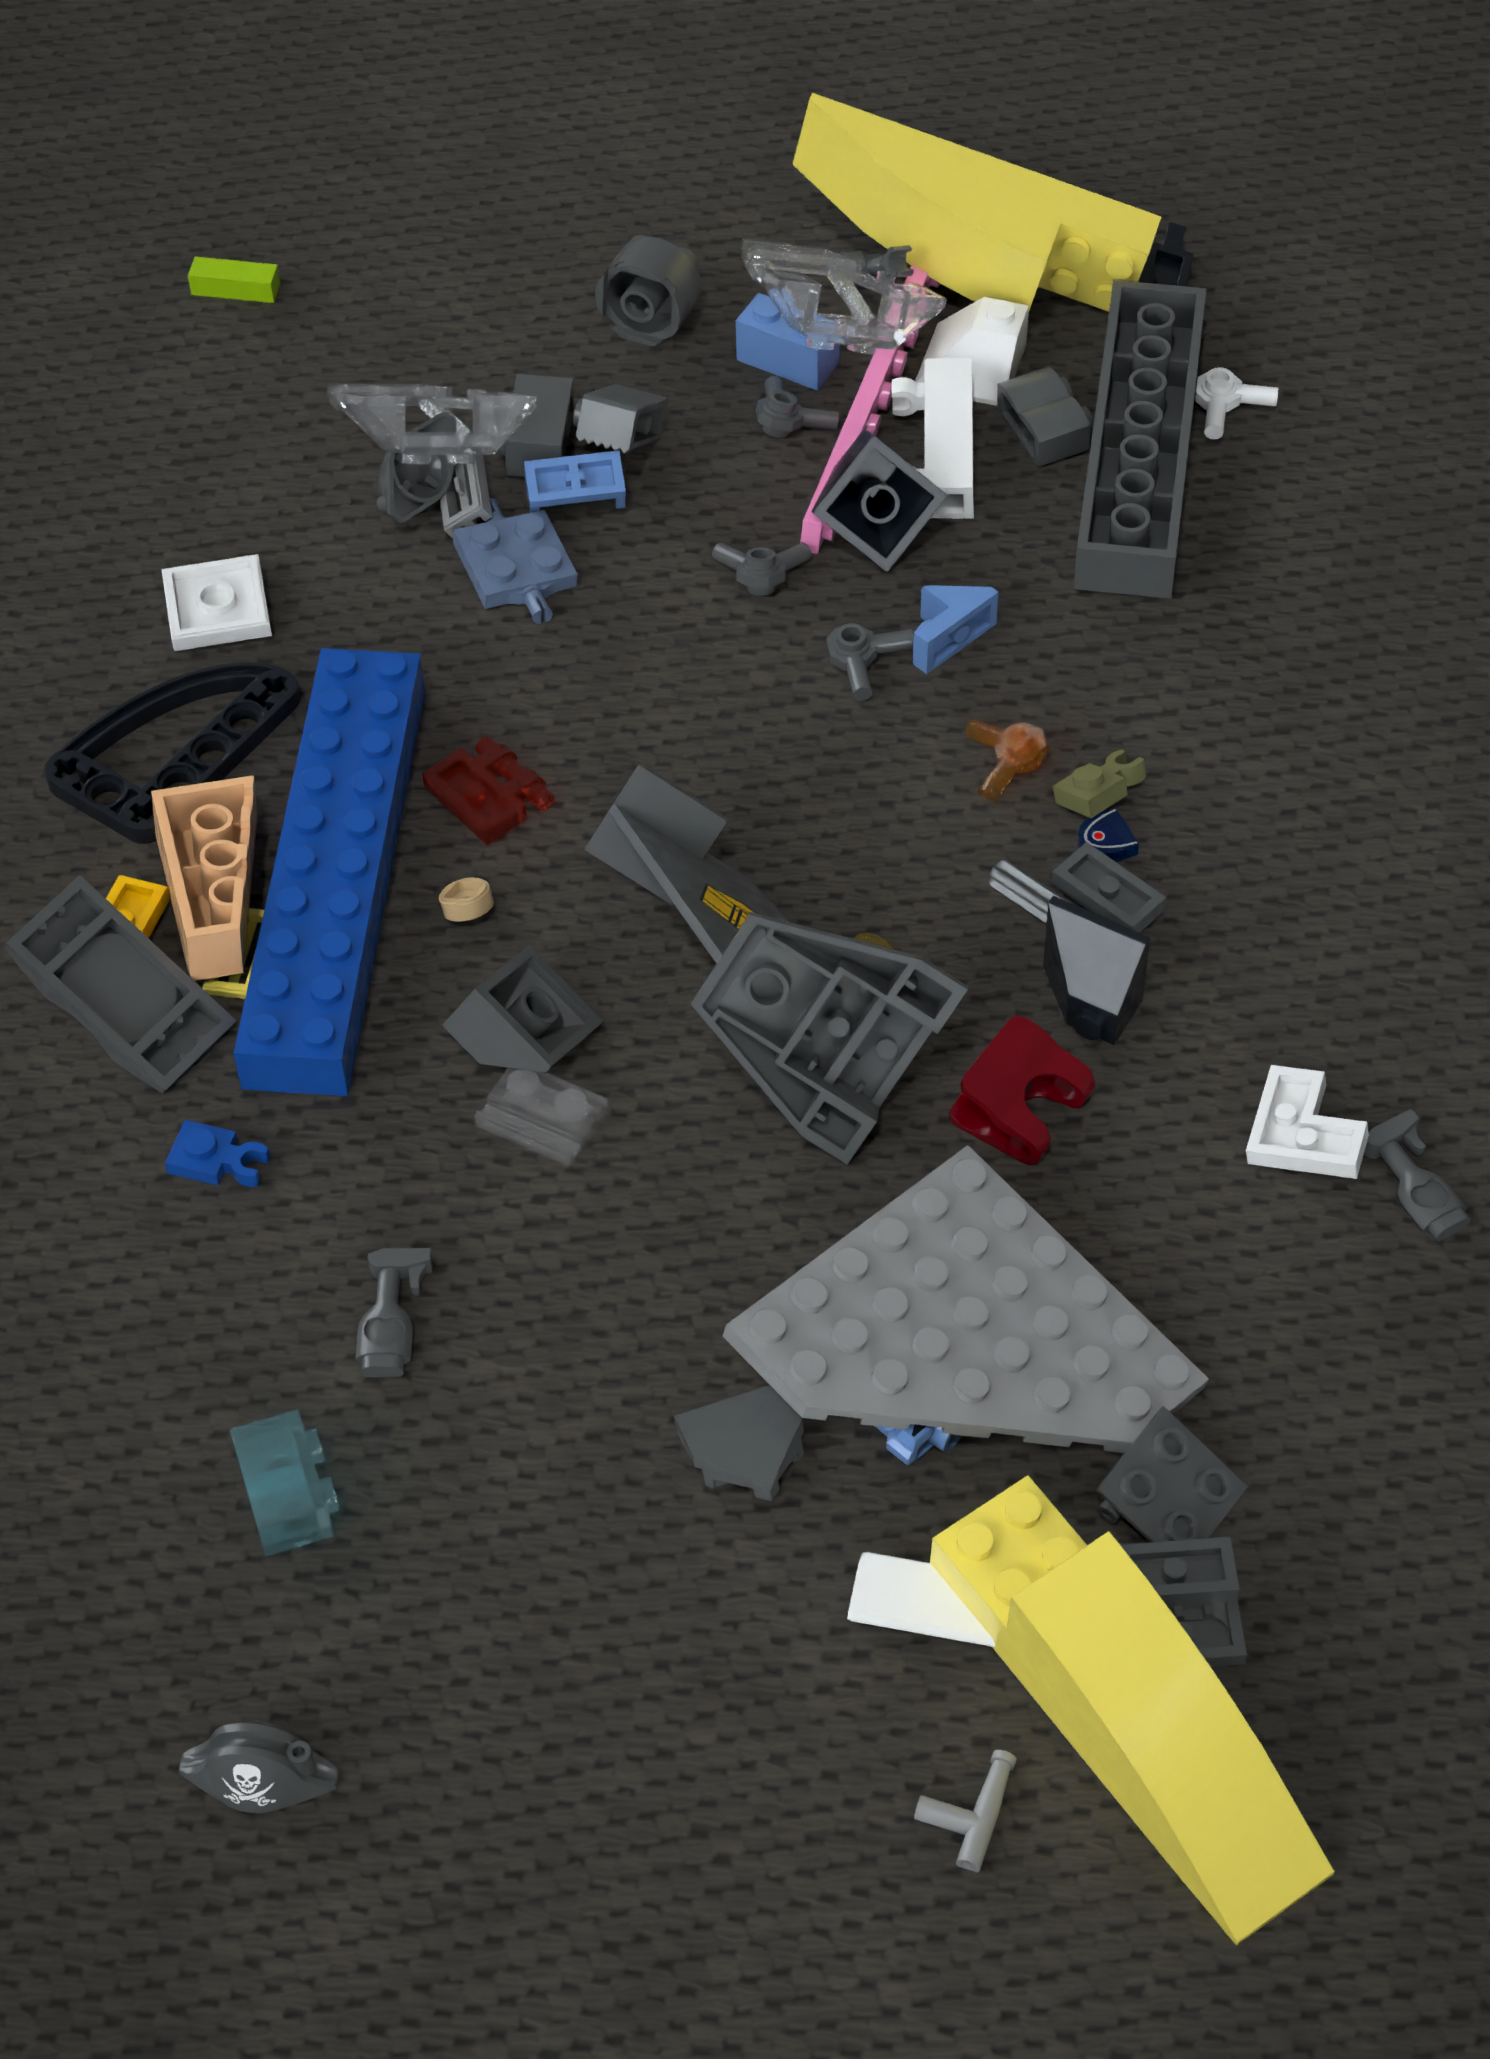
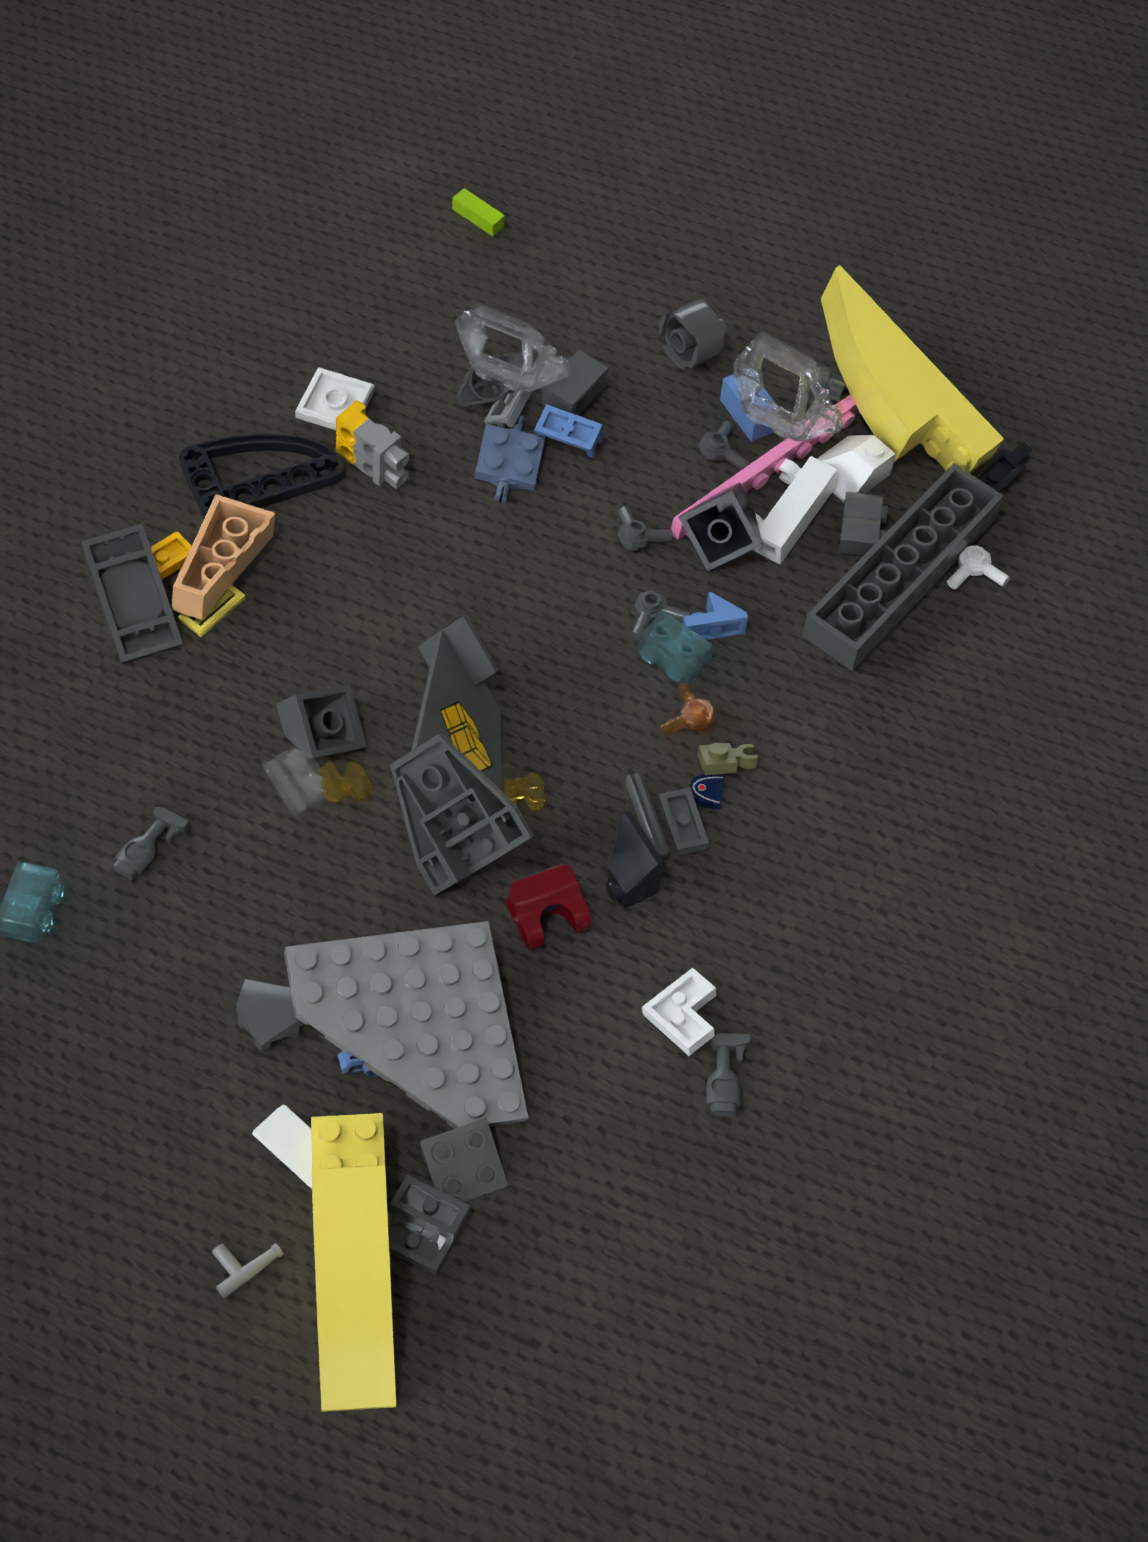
camera: 25 degrees right, 5 degrees up
(210, 1151) = (120, 708): blue plate -> none
(304, 619) = (371, 446): none -> light grey hips
(331, 875) = (284, 587): blue brick -> none
(466, 899) = (343, 640): tan tile -> none
(478, 798) = (389, 583): clear red plate -> none
(620, 417) = (619, 404): dark grey brick -> none
(624, 1078) = (353, 784): none -> clear yellow piece
(925, 686) = (674, 648): none -> clear light blue brick

